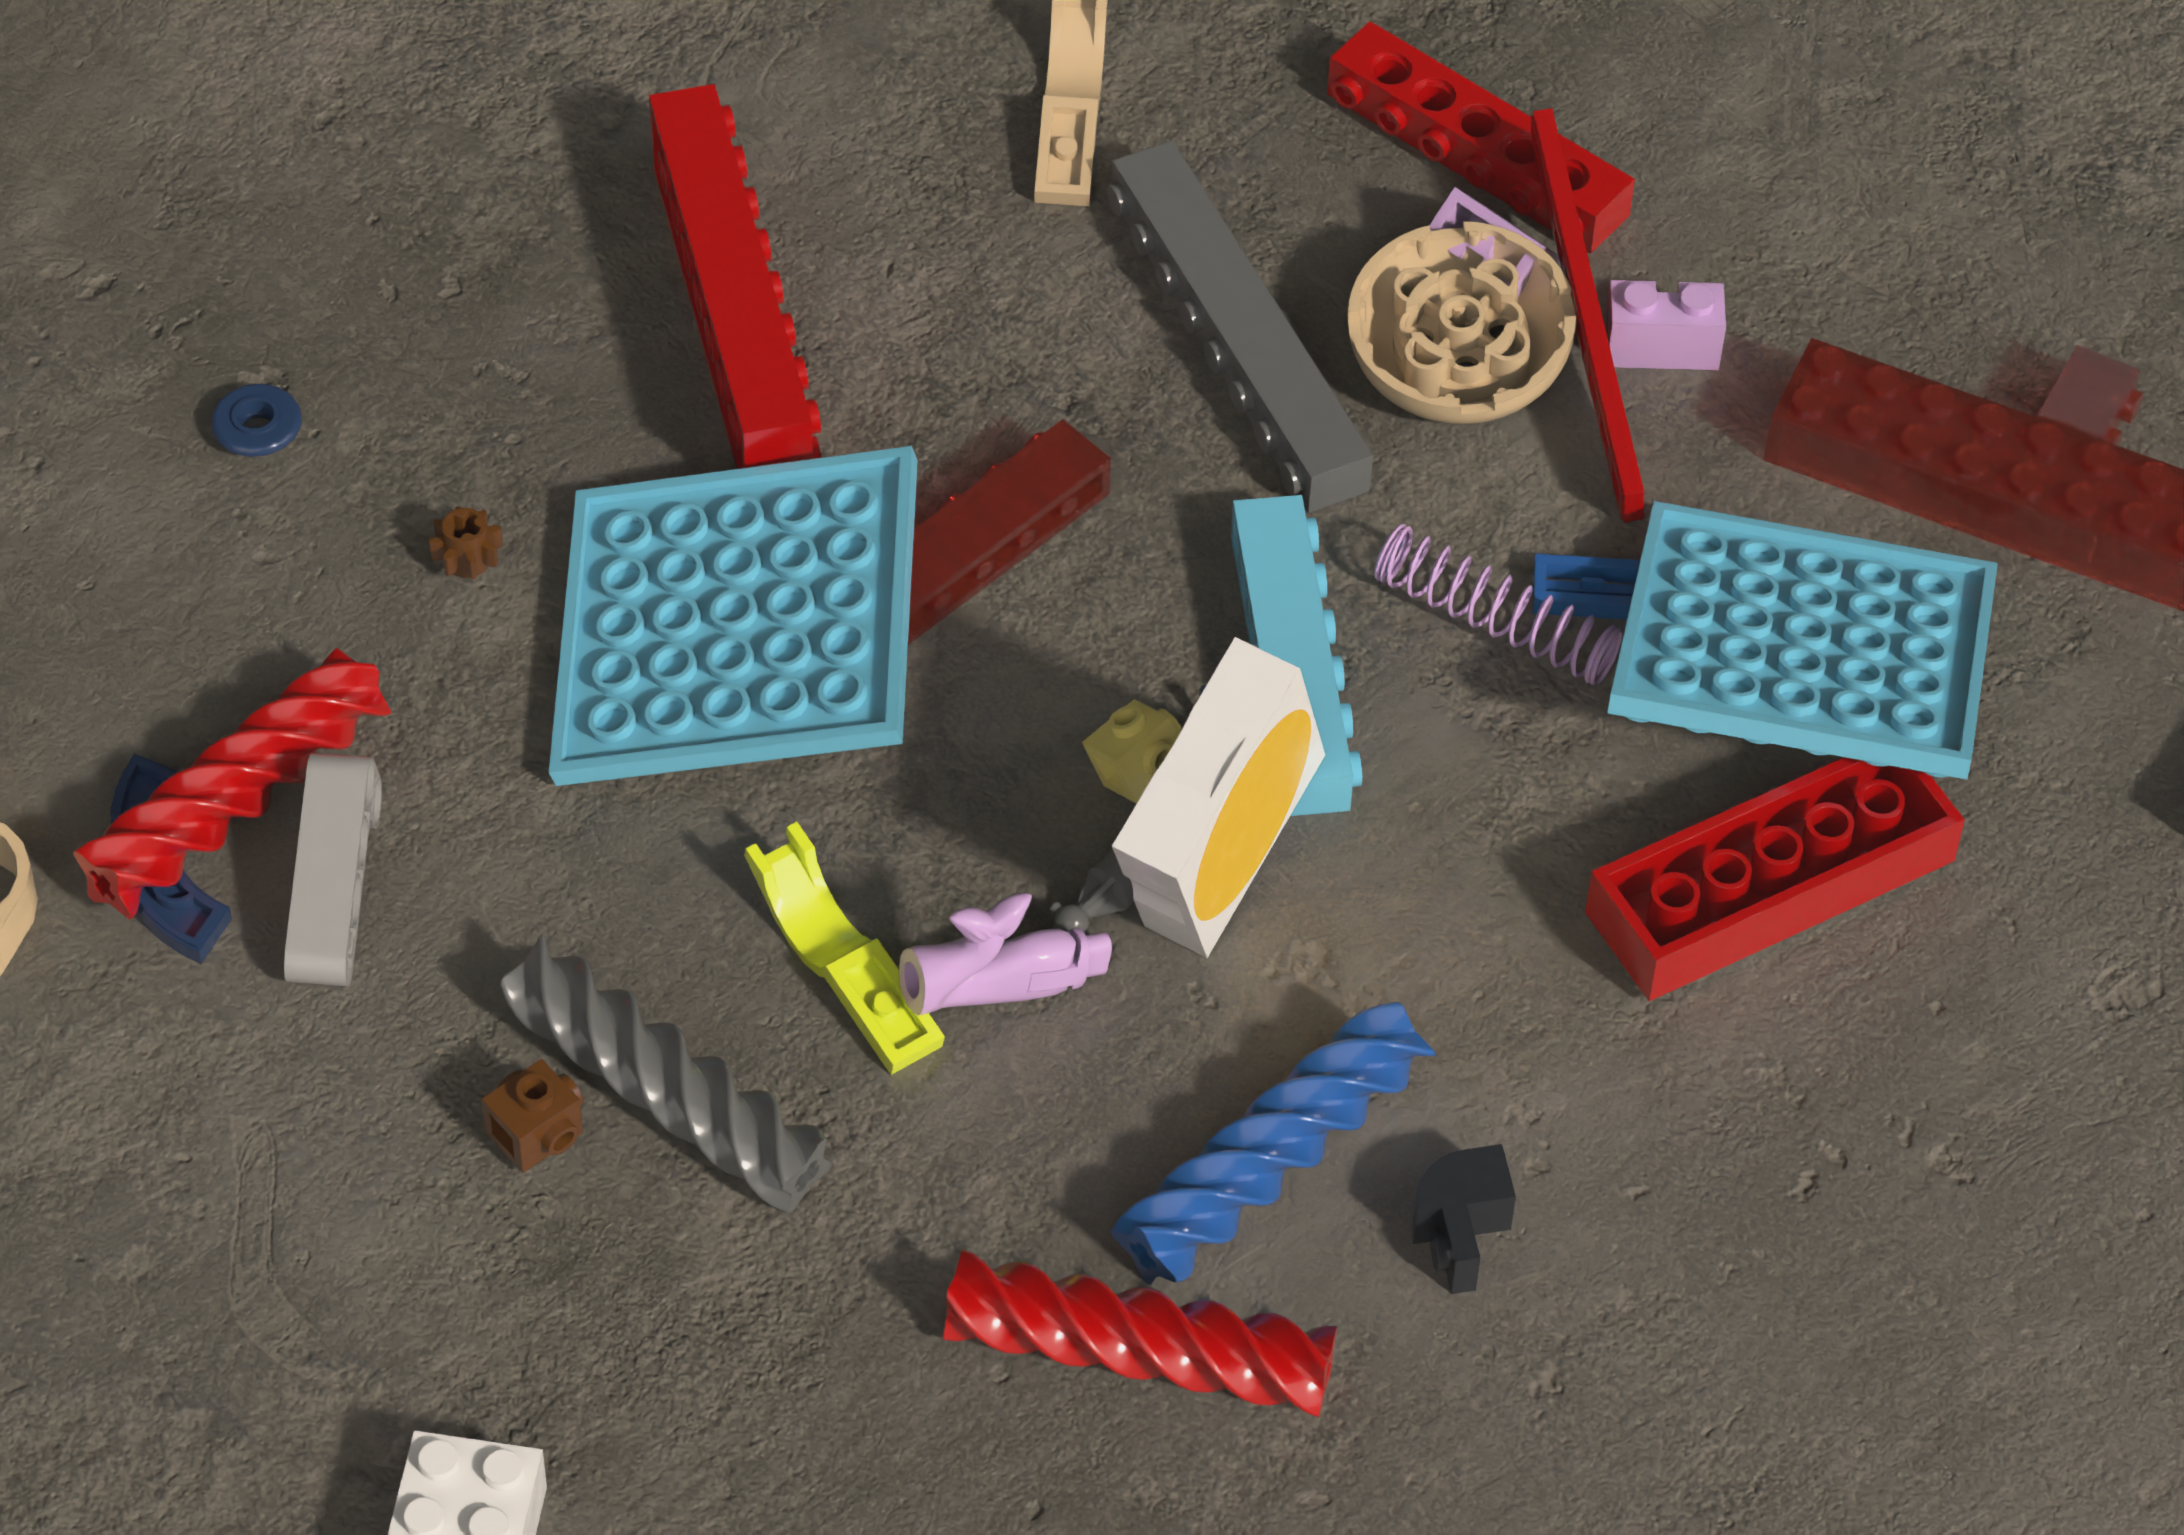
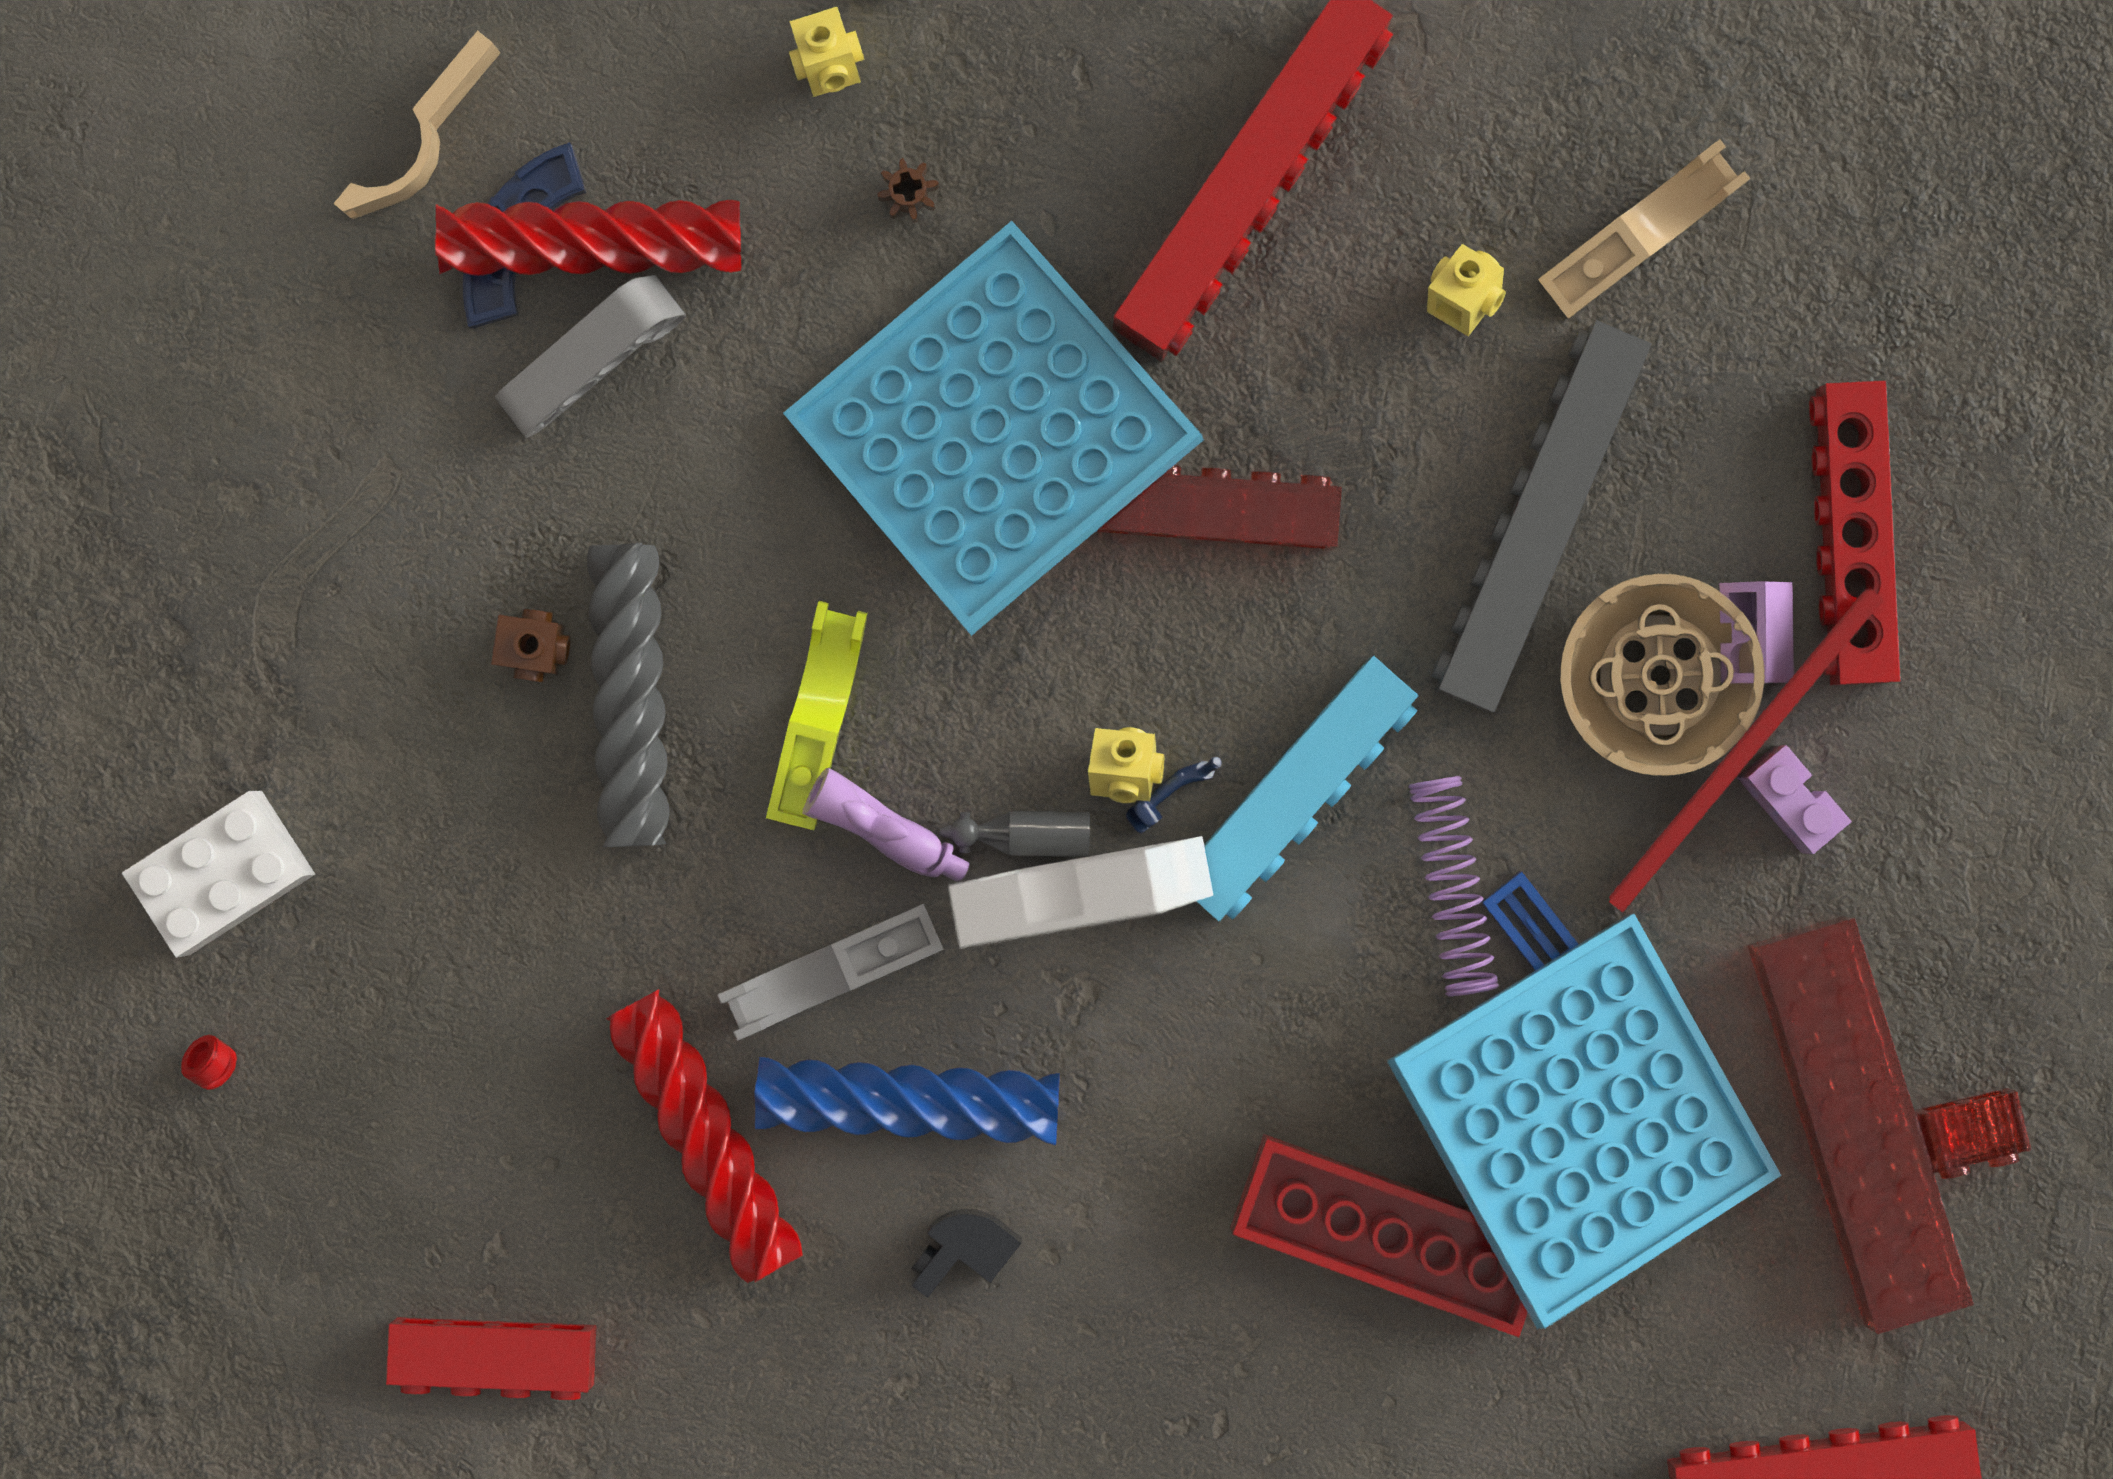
camera: 50 degrees right, 35 degrees up
(283, 505) = (825, 52): none -> light yellow brick
(989, 231) = (1465, 289): none -> light yellow brick
(1092, 1115) = (831, 971): none -> light grey piece

